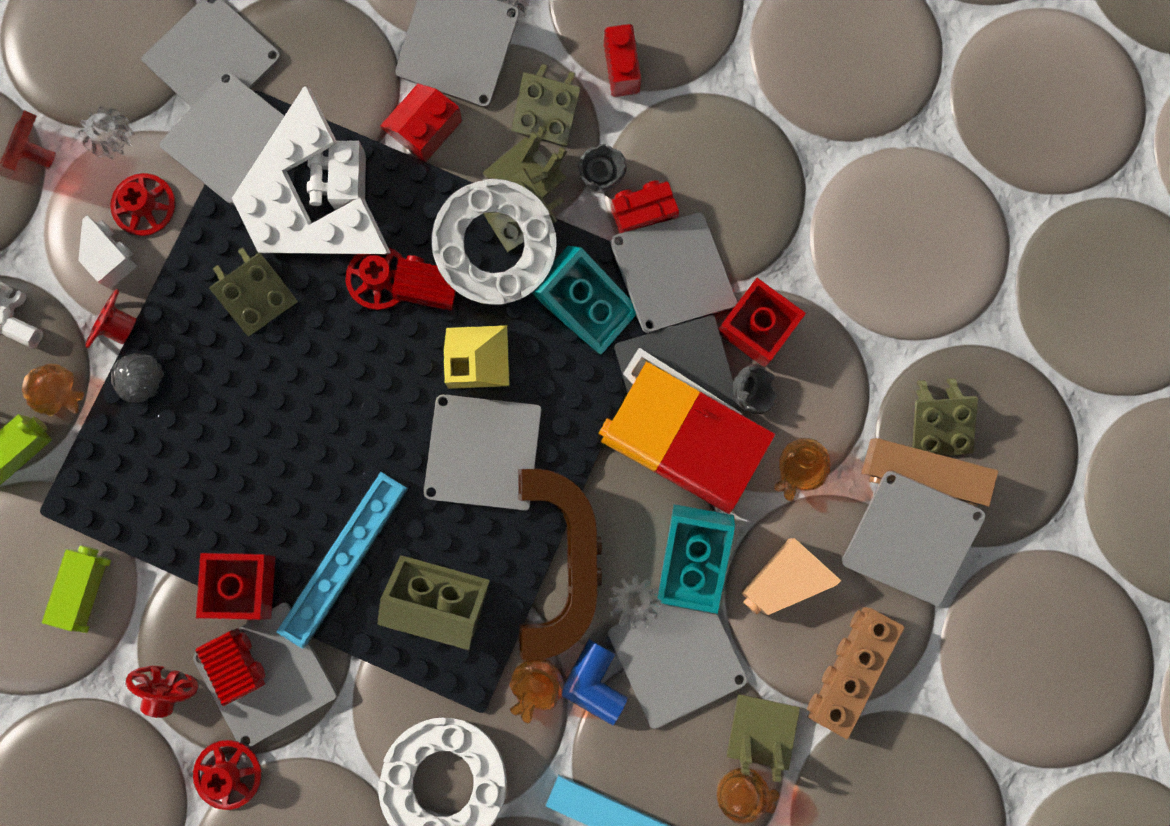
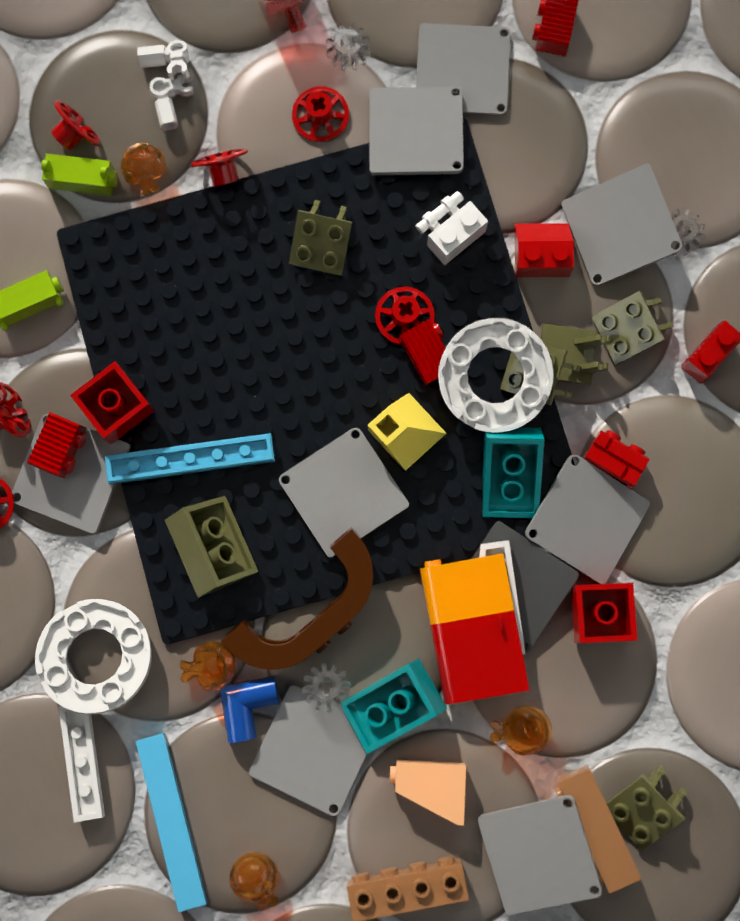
camera: 60 degrees right, 0 degrees up
(102, 255) = (262, 118): white slope -> none
(136, 377) = (198, 215): dark grey hair -> none
(273, 207) = (392, 202): white wing -> none
(602, 168) = (619, 404): dark grey hair -> none
(753, 389) = (550, 648): dark grey hair -> none
(763, 734) = (309, 857): olive plate -> none

